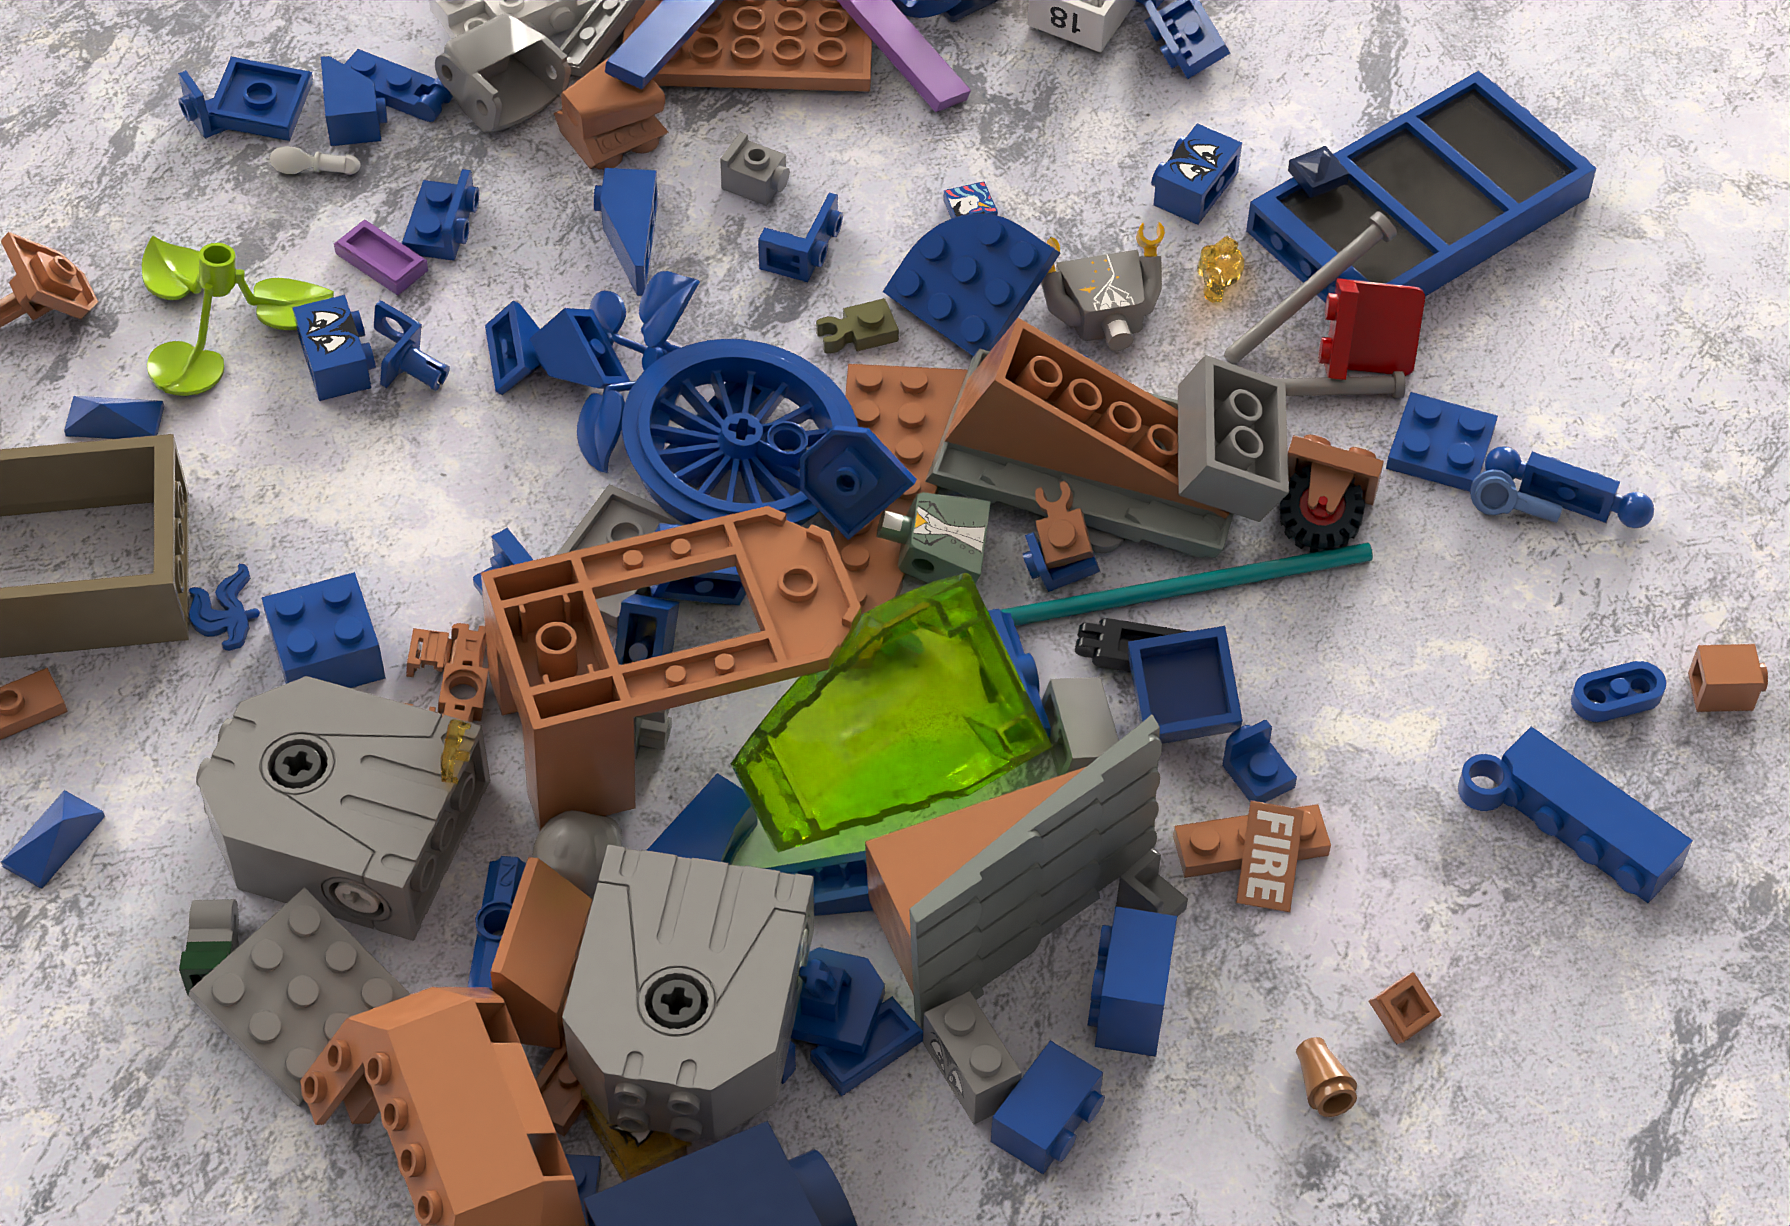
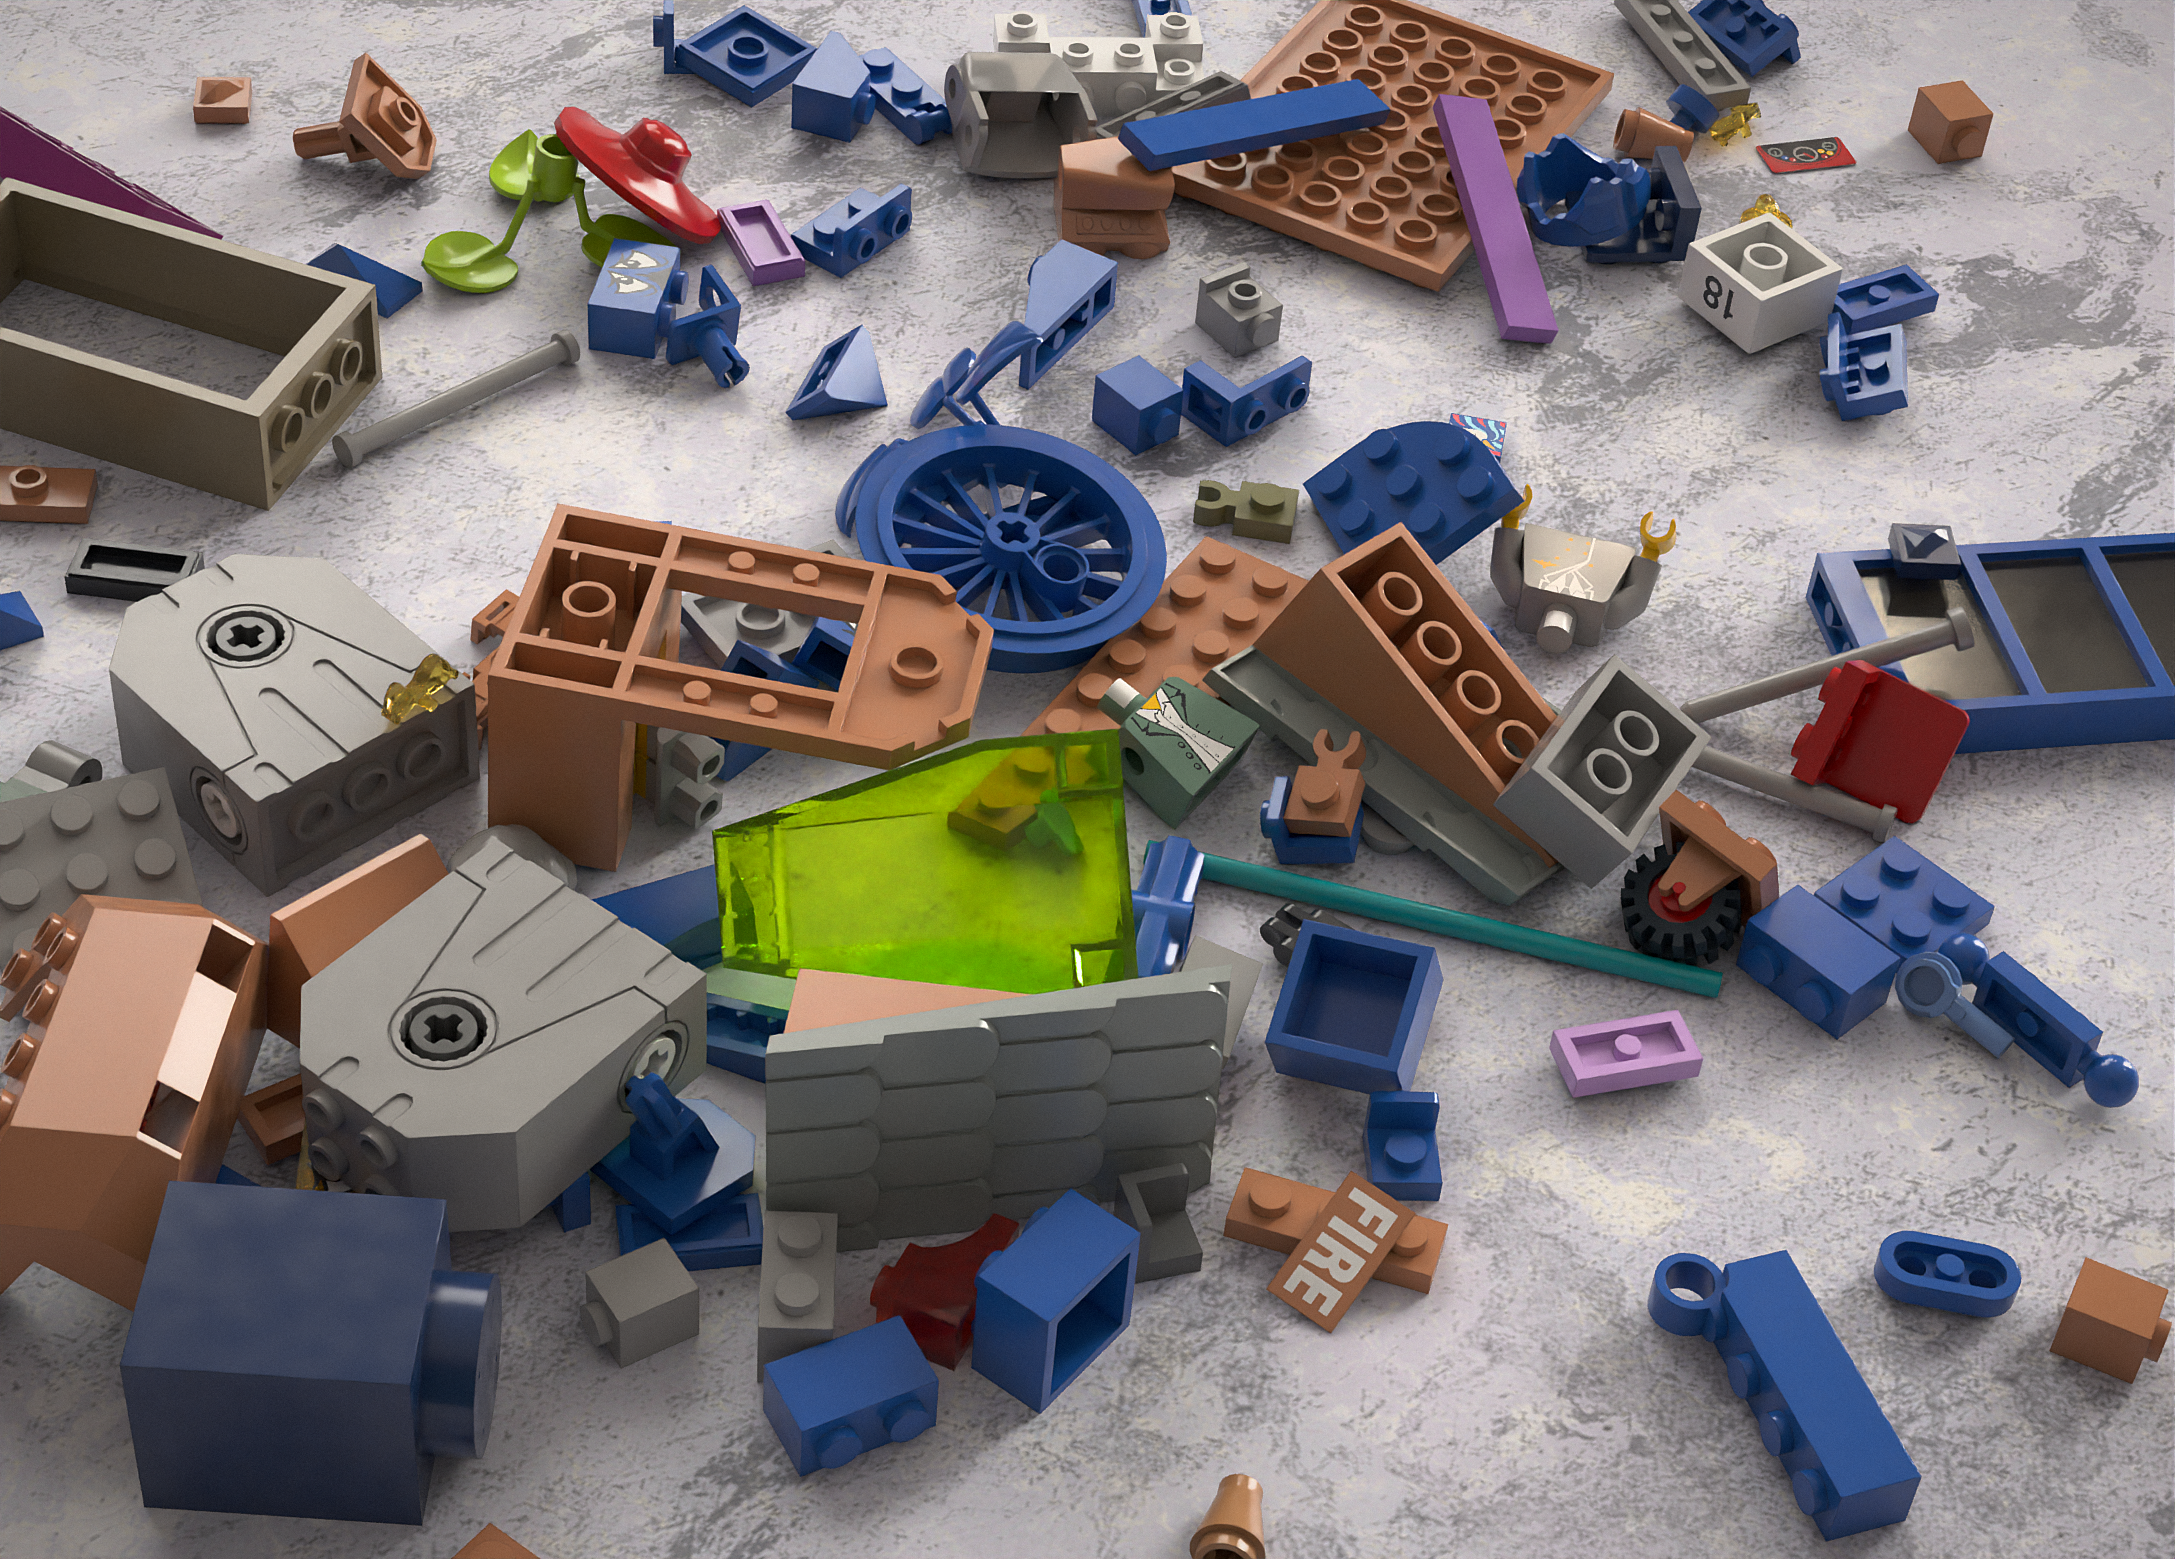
camera: 25 degrees right, 10 degrees down
(135, 736) = (128, 569): none -> black tile
(216, 563) = (351, 447): none -> light grey bar
(232, 619) = (326, 513): blue piece -> none
(275, 241) = (642, 169): none -> red hat
(294, 160) = (739, 122): white piece -> none
(325, 633) = (407, 551): blue piece -> none
(578, 350) = (895, 390): blue slope -> none
(737, 279) = (1137, 405): none -> blue brick
(852, 477) = (1098, 622): blue piece -> none
(877, 1111) = (640, 1303): none -> light grey brick
(1055, 1006) = (937, 1290): none -> clear red arch
(1196, 173) = (1777, 509): blue brick -> none
(1220, 267) = (1741, 615): clear yellow piece -> none
(1347, 630) = (1625, 1053): none -> lavender plate
(1405, 1008) = (1397, 1502): nougat tile -> none
(1420, 508) = (1817, 961): none -> blue brick

